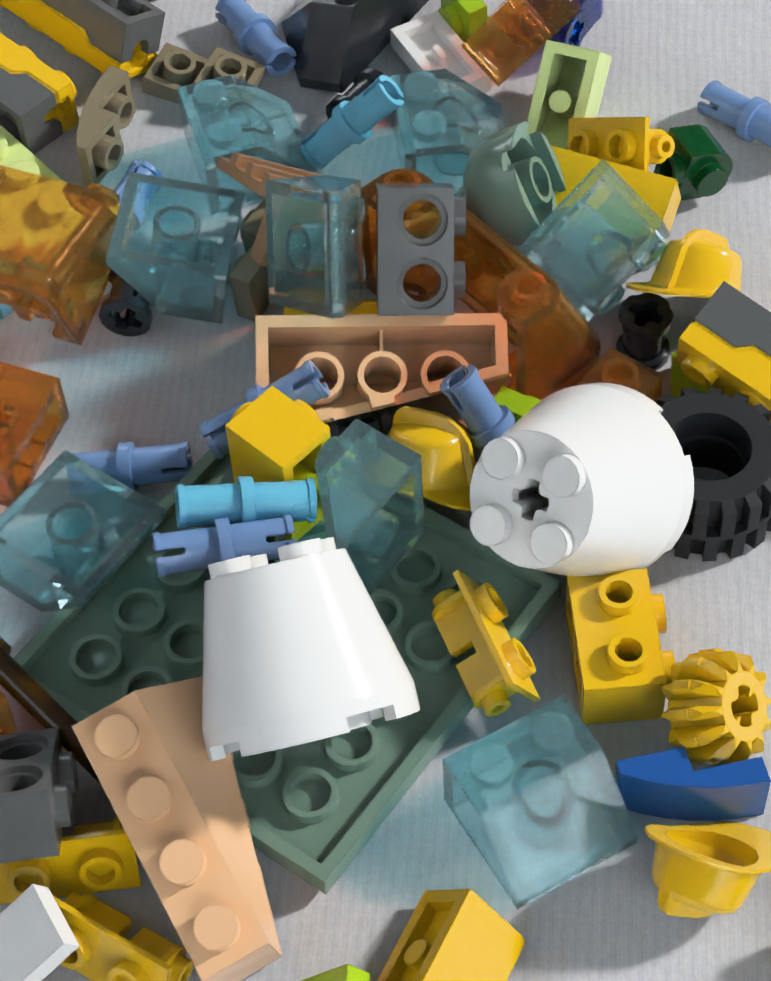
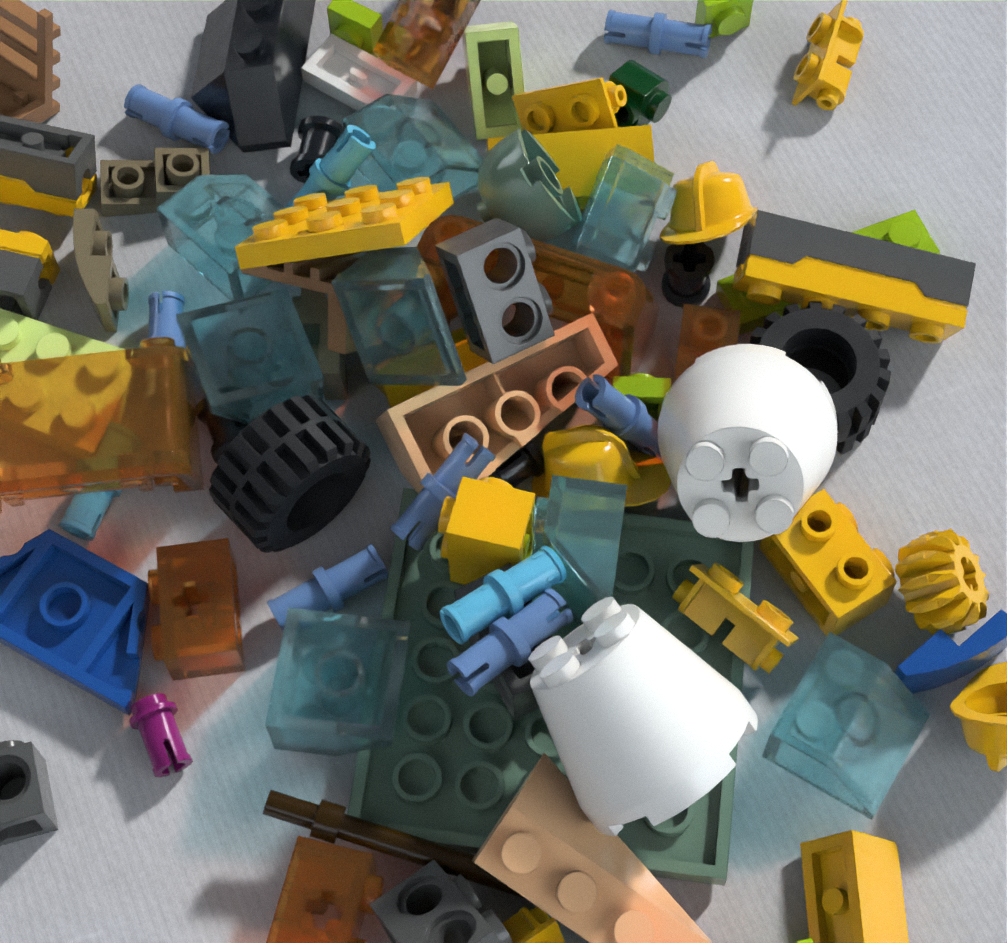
camera: 30 degrees left, 10 degrees up
(145, 343) = (289, 473): none -> black tyre
(321, 144) = (347, 224): none -> yellow plate

